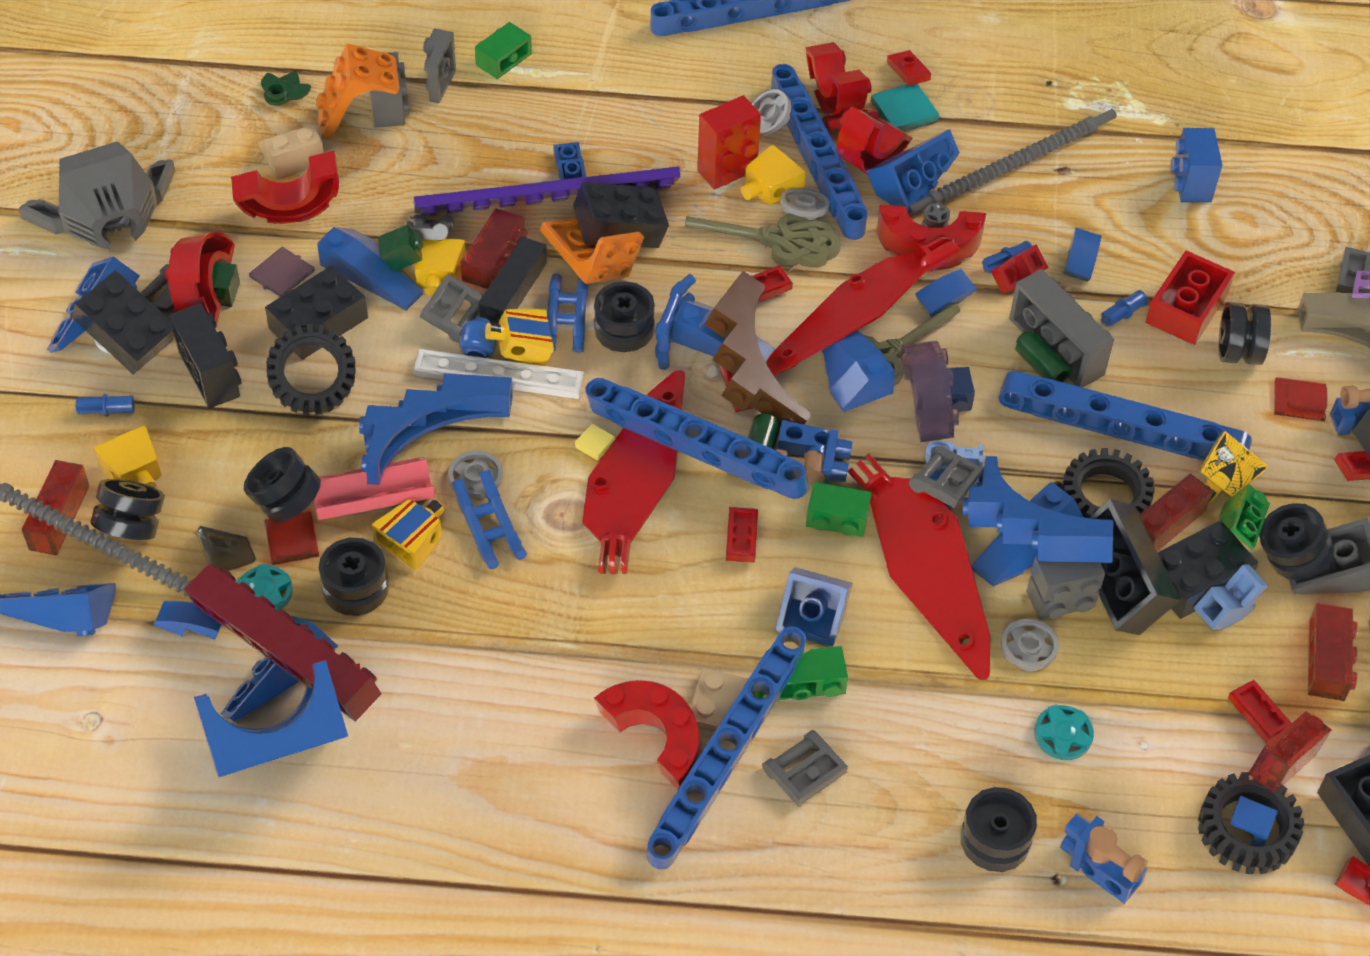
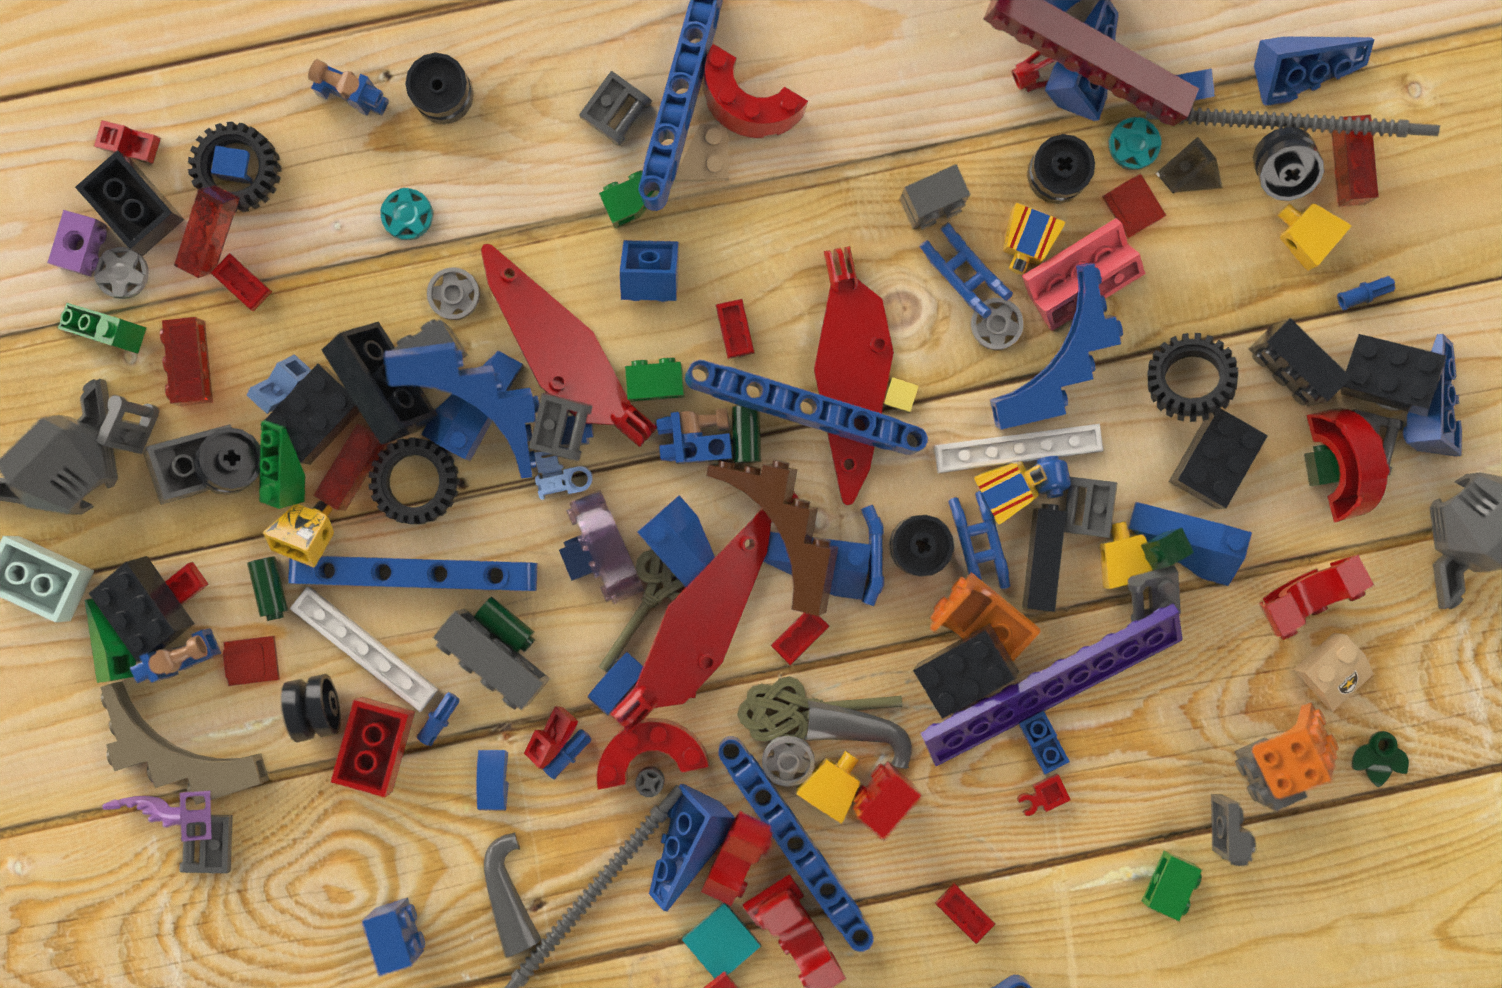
camera: 165 degrees right, 35 degrees up
(281, 272) = (1274, 510): piece -> none
(282, 484) = (1162, 234): black wheel -> none
(492, 247) = (1078, 597): clear red brick -> none
(495, 579) = (935, 197): none -> dark grey piece
(583, 130) = (1048, 794): none -> red plate
(686, 75) = (965, 913): none -> red plate
(747, 214) = (841, 723): none -> dark grey animal
(773, 112) = (859, 877): light grey wheel -> none
(1087, 162) = (510, 915): none -> dark grey animal
(1183, 377) = (364, 649): none -> white tile
(1274, 443) = (267, 588): none -> dark green brick

